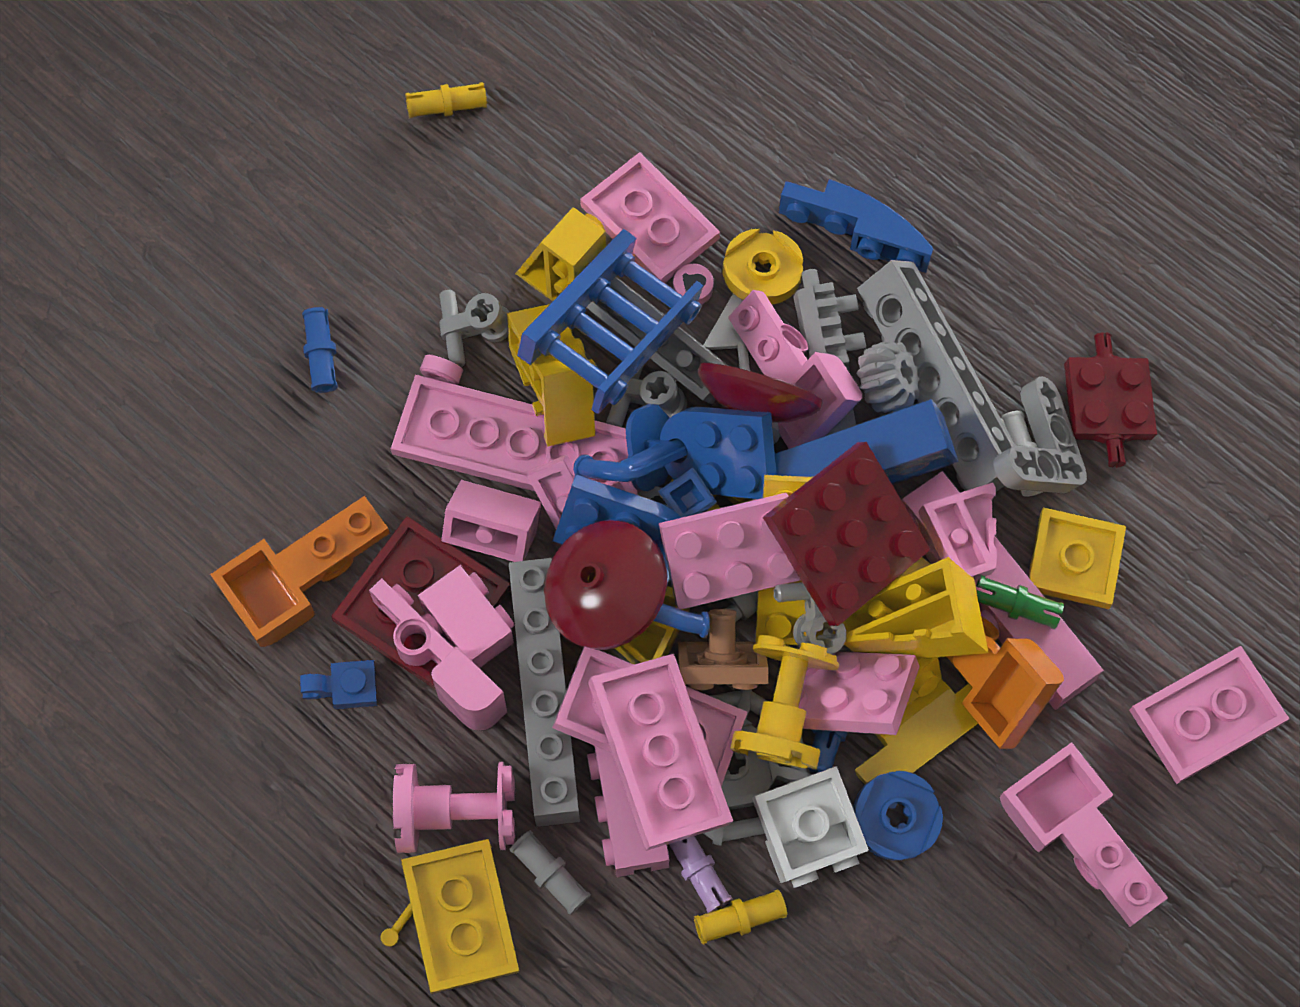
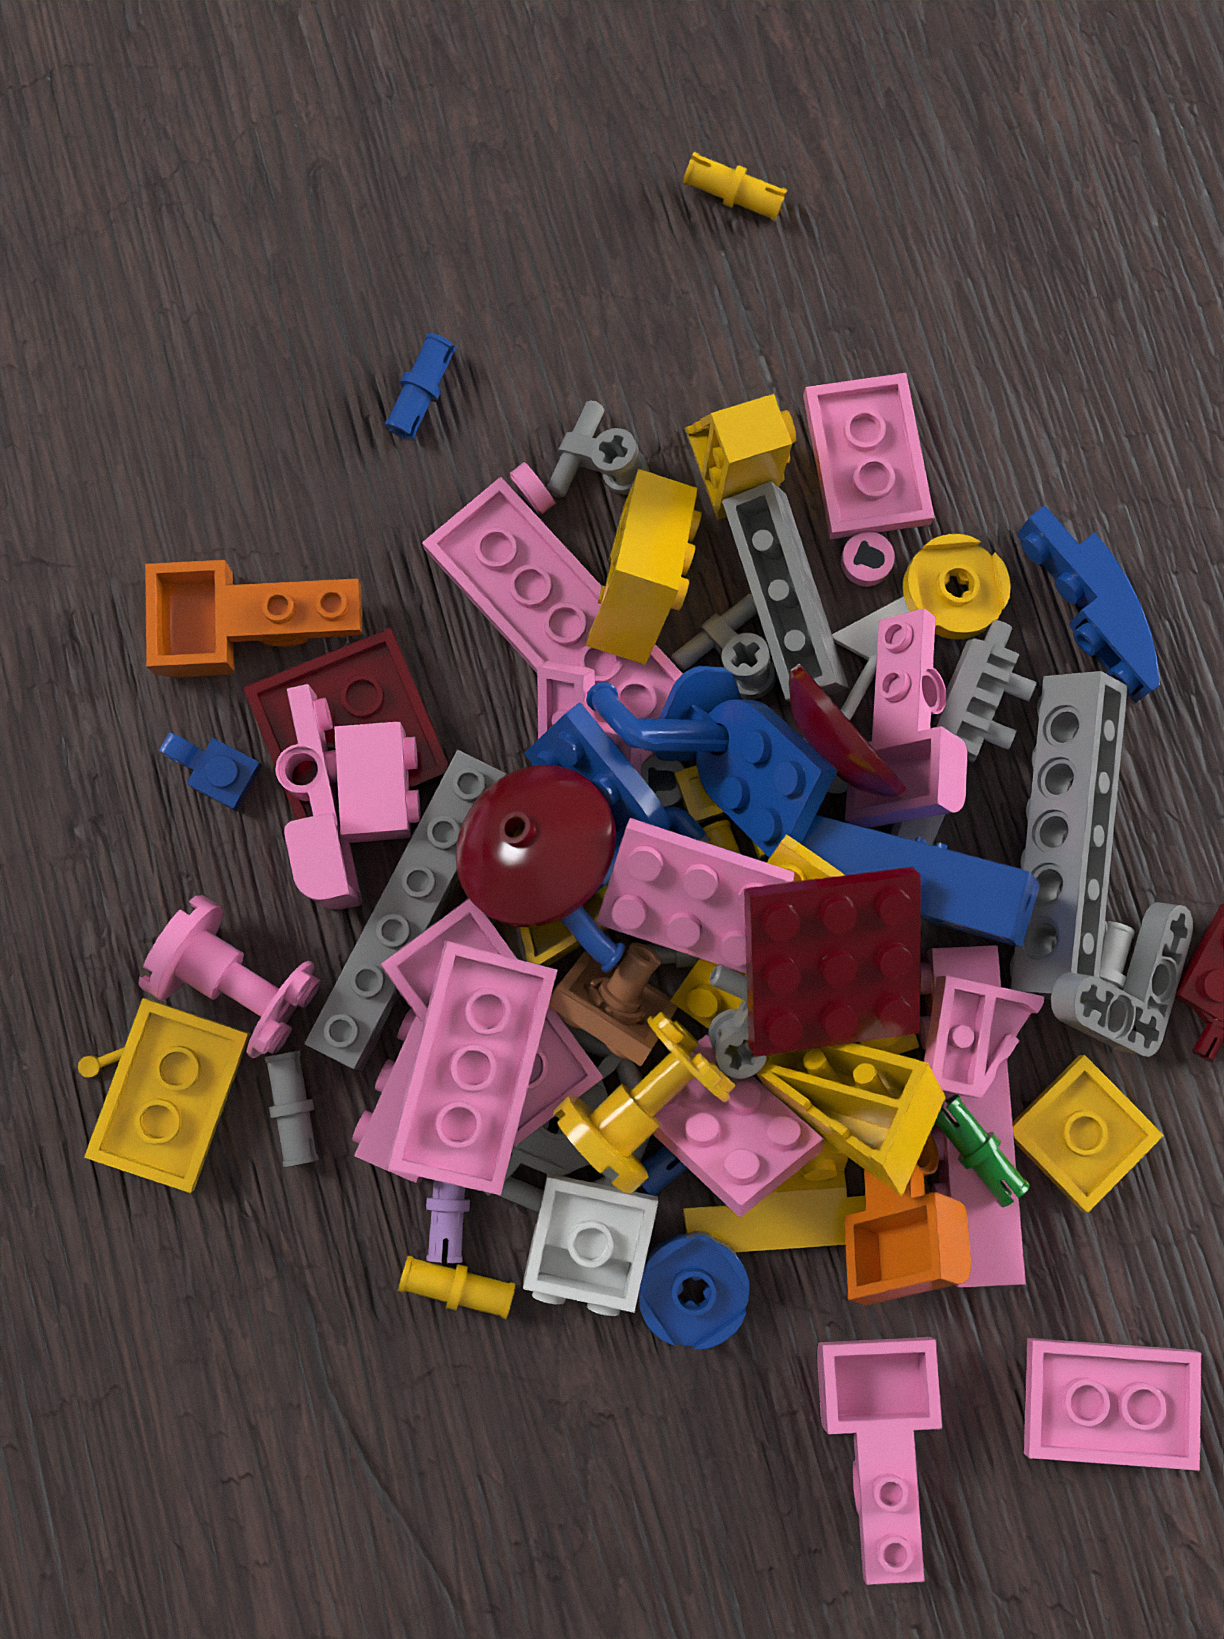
camera: 30 degrees right, 10 degrees up
(491, 521) = (473, 690): bright pink brick -> none
(594, 285) = (743, 498): blue fence -> none
(687, 495) = (694, 800): blue slope -> none
(888, 377) = (1008, 803): light grey gear -> none

